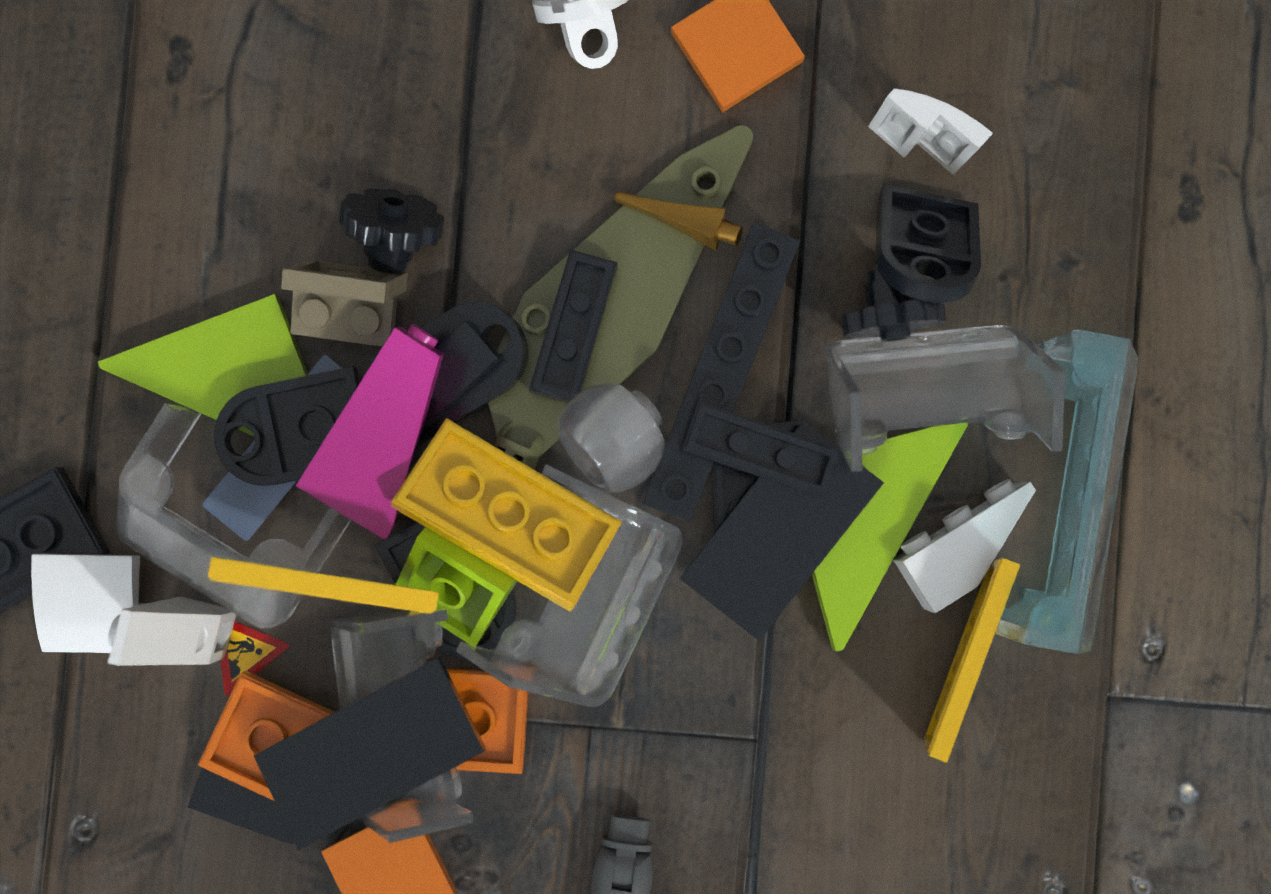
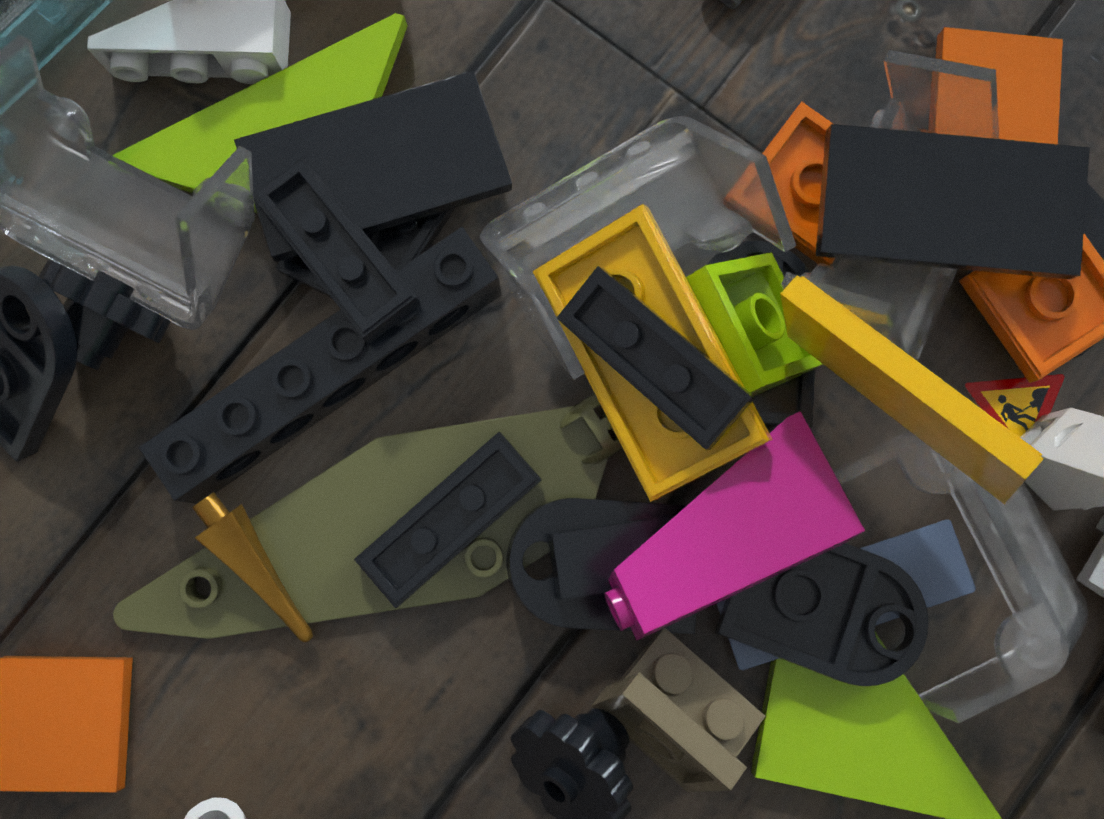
camera: 145 degrees left, 5 degrees down
(500, 509) = (655, 358): none -> black tile
(612, 436) = (482, 367): clear wheel -> none

